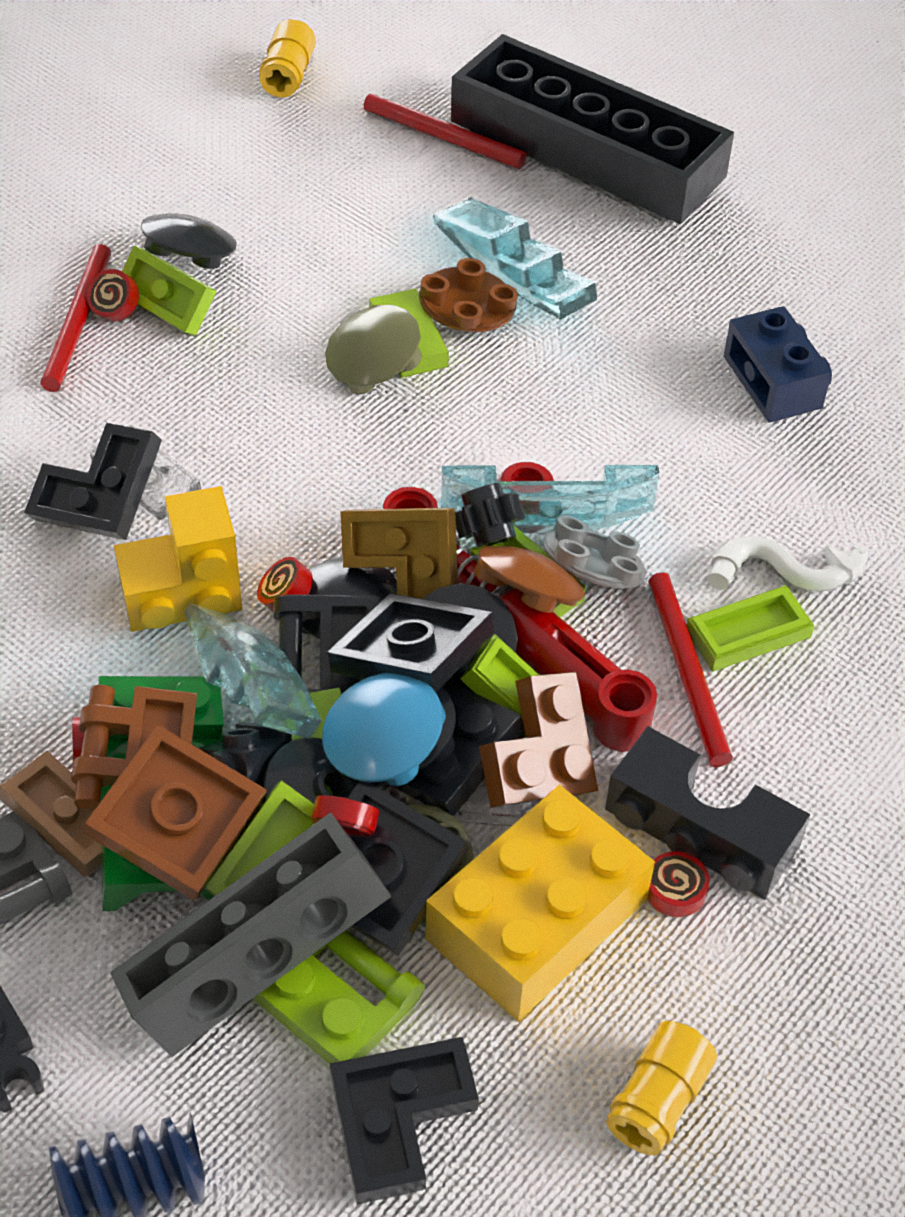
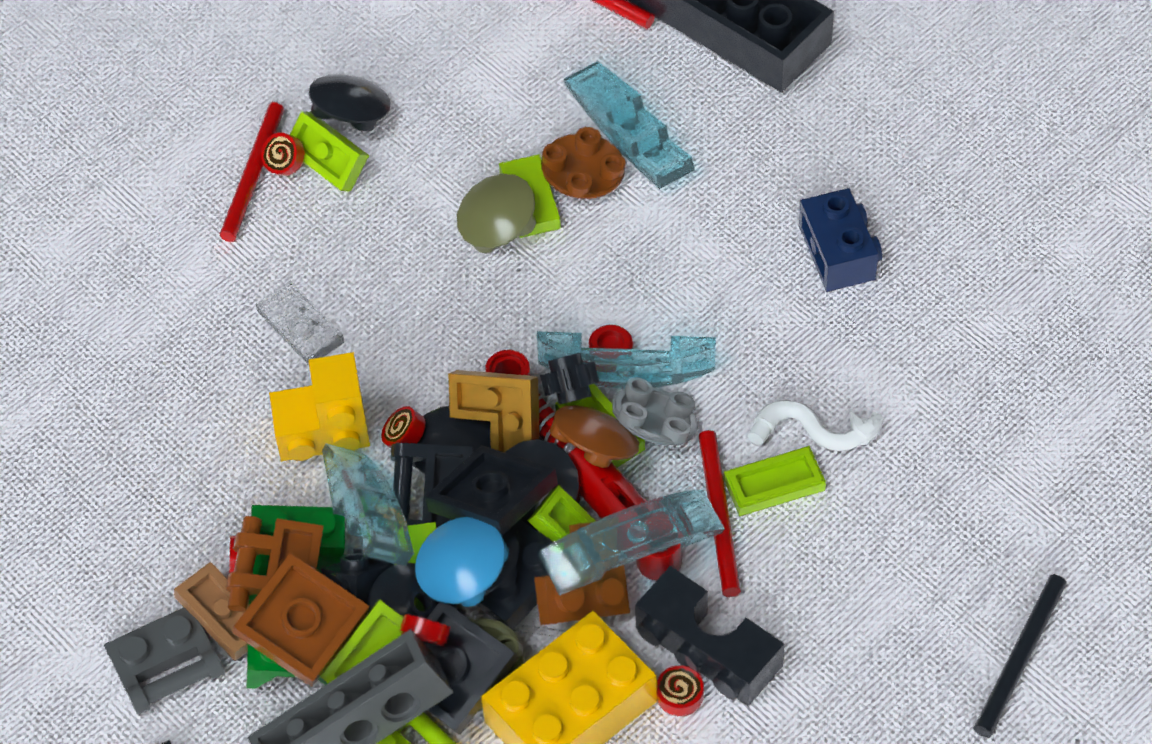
camera: 10 degrees right, 5 degrees up
(107, 494) = (265, 345): black plate -> none
(590, 690) = (628, 536): none -> clear light blue slope

